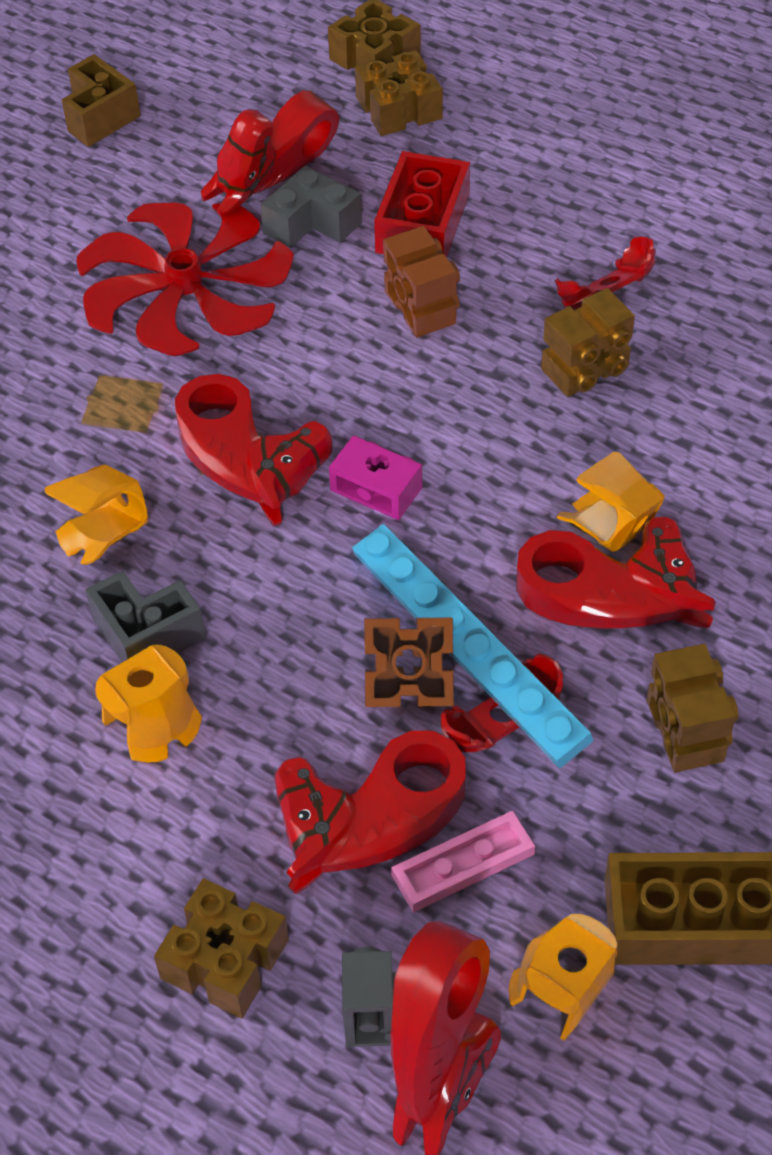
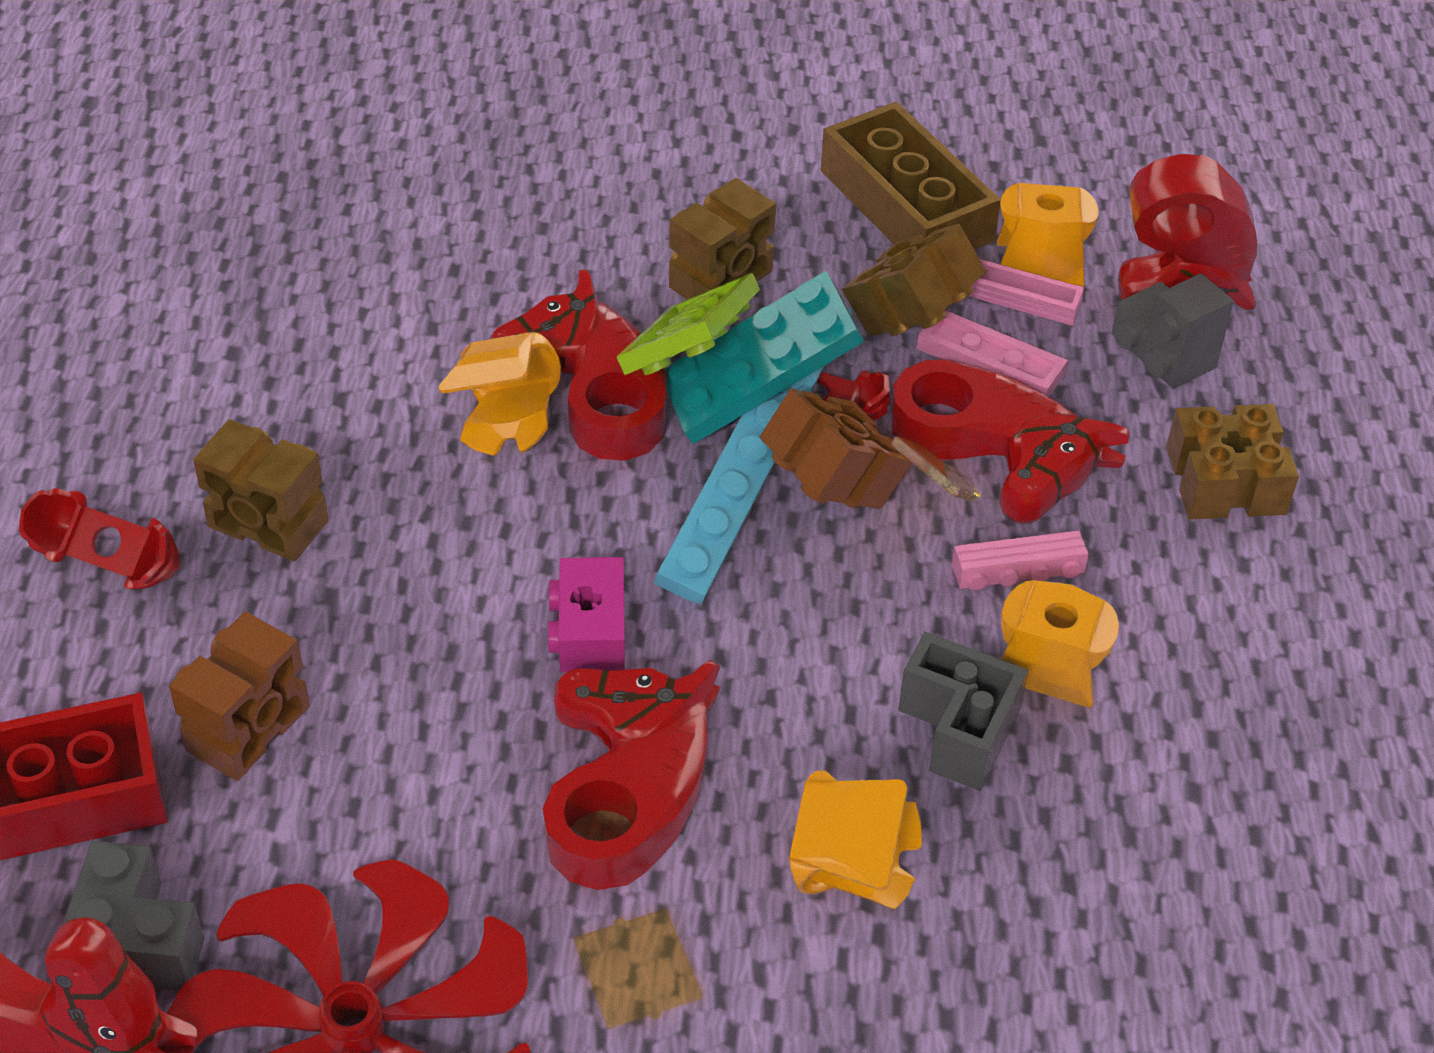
camera: 125 degrees left, 5 degrees down
(246, 750) = (1019, 560): none -> bright pink piece
(351, 724) = (935, 469): none -> piece
(513, 933) = (1028, 293): none -> bright pink piece
(524, 651) = (761, 357): none -> teal plate
(558, 819) = (915, 282): none -> pearl gold brick
(587, 620) = (689, 326): none -> lime plate

